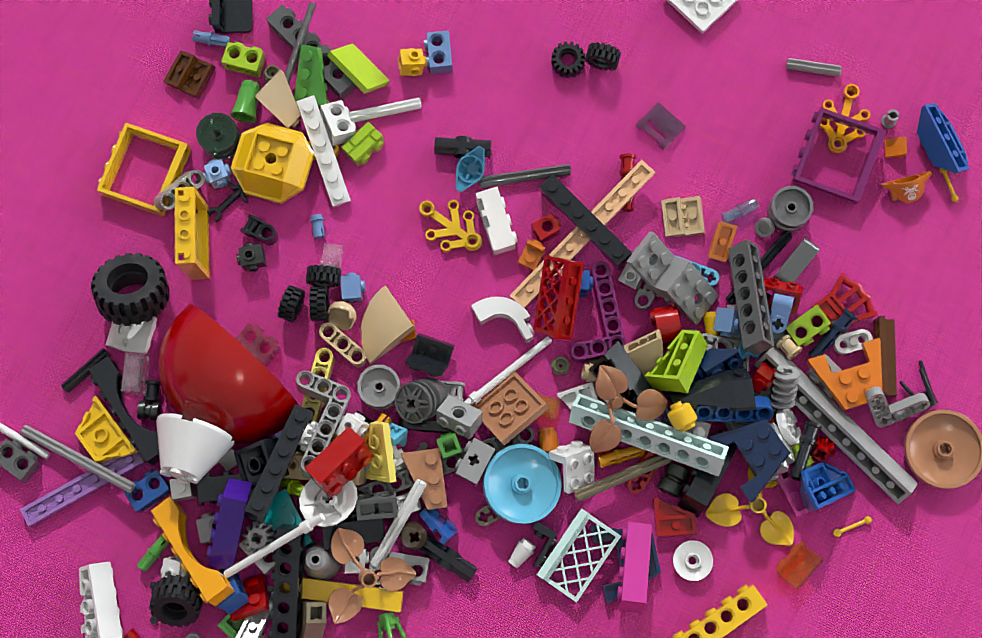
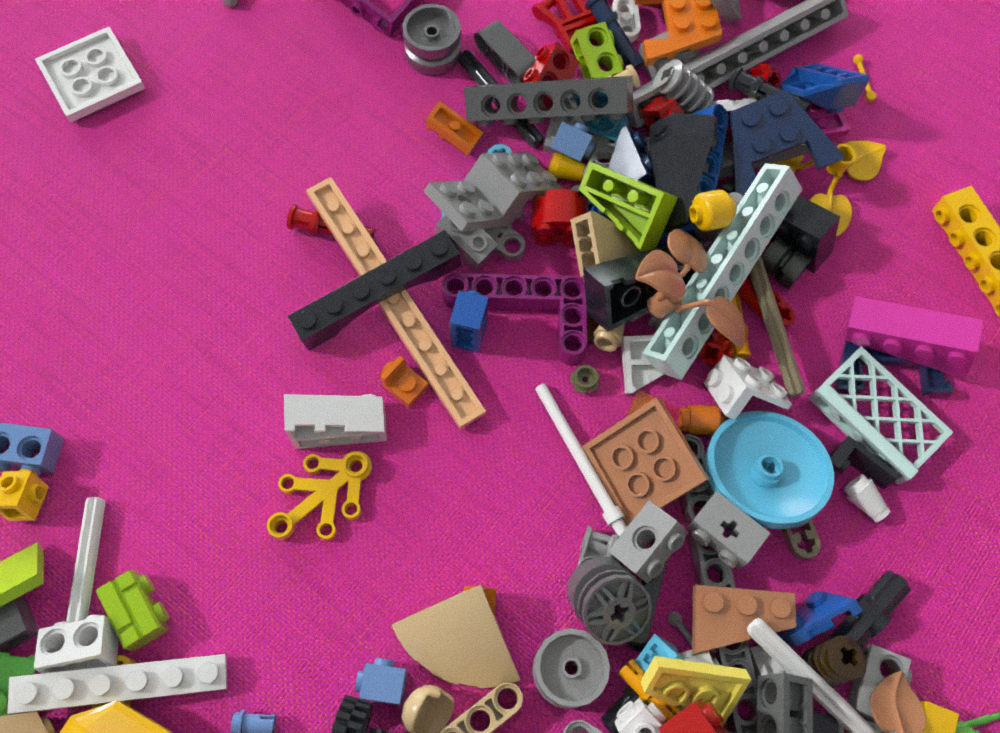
camera: 85 degrees left, 10 degrees down
(332, 255) = (314, 709): clear bracket -> none
(430, 355) = (533, 572): black bracket -> none
(449, 444) = (683, 569): bright green brick -> none
(460, 146) = (195, 447): black piece -> none
(470, 168) = (238, 436): dark azure hat -> none
(504, 308) = (480, 435): white arch -> none
(525, 175) = (273, 367): dark grey axle -> none
(541, 235) = (367, 362): red brick -> none
(566, 298) = (493, 326): red fence -> none
(568, 49) = (105, 250): black tyre -> none
(603, 56) = (127, 210): black tyre -> none
(665, 122) = (258, 161): clear purple plate -> none
(672, 520) = (837, 279): red wing -> none
(683, 216) = (402, 169): tan slope -> none
(703, 559) = (903, 257): white dish -> none
(740, 211) = (415, 101): clear light blue axle -> none
(764, 227) = (447, 76): light grey tile -> none
(780, 309) = (573, 66): medium blue piece -> none
(798, 565) = (915, 143): clear orange bracket -> none

